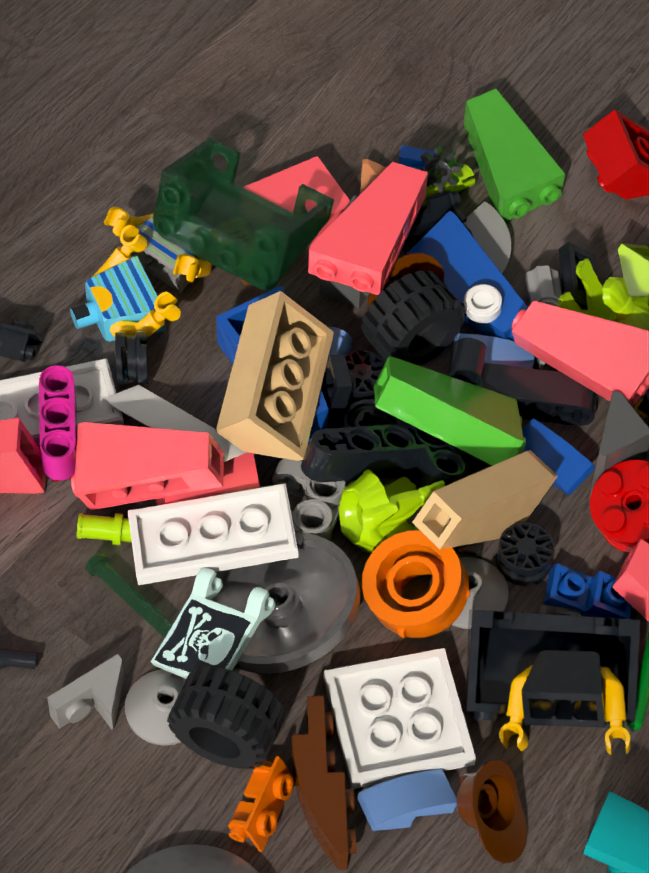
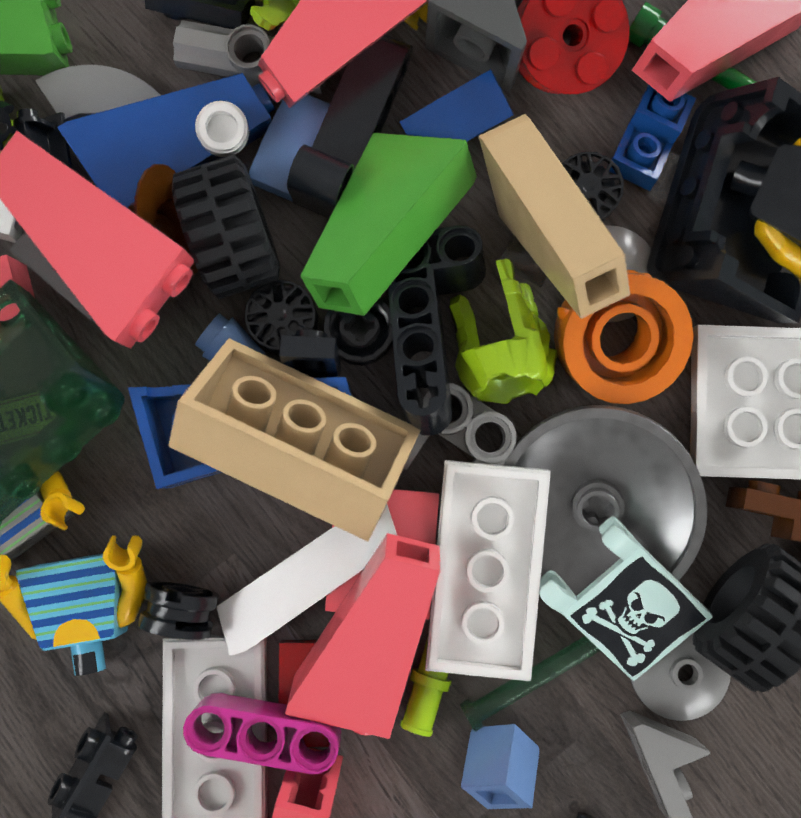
camera: 75 degrees left, 30 degrees up
(63, 587) = (501, 767): none -> medium blue panel

